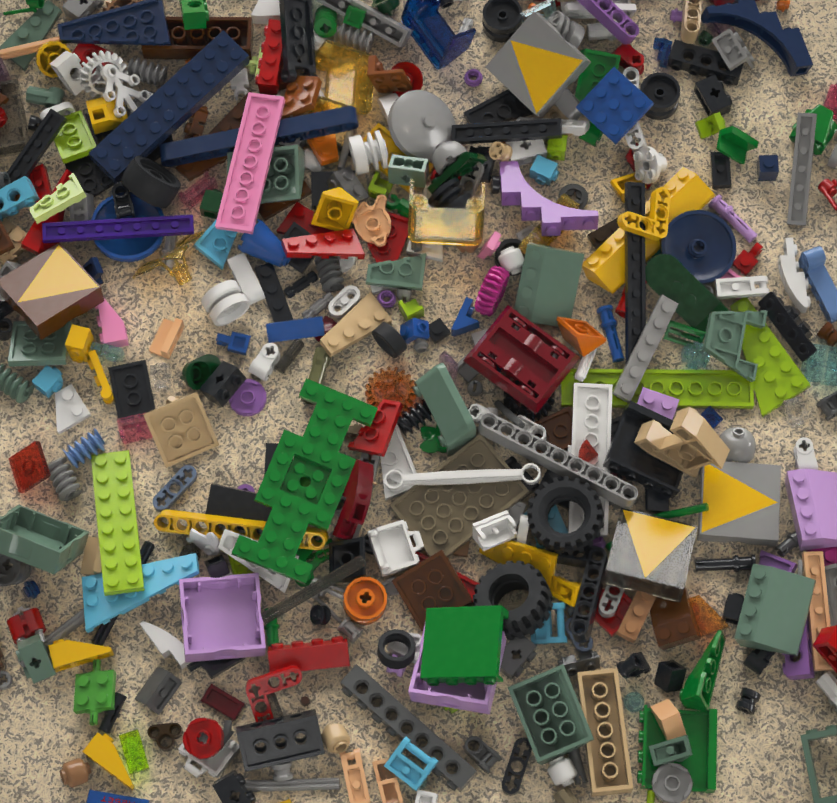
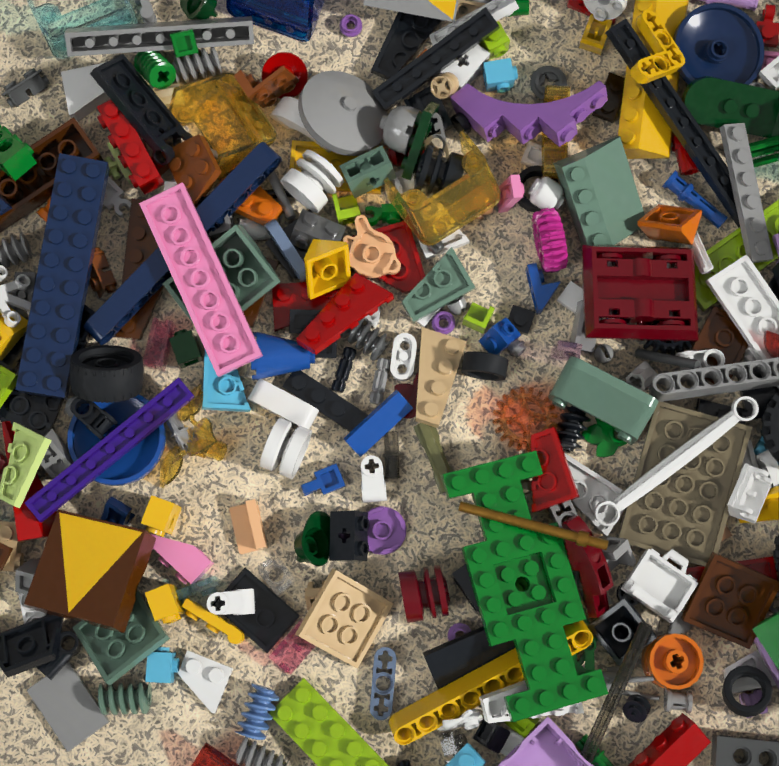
camera: 35 degrees left, 10 degrees up
(117, 290) = (160, 516): none -> yellow brick
(122, 373) = (236, 602): none -> white piece
(240, 448) = (424, 593): none -> dark red wheel
(320, 180) = (286, 249): none -> sand blue beam
(359, 473) = (581, 538): none -> pearl gold bar
(380, 511) = (618, 553): none -> light grey panel

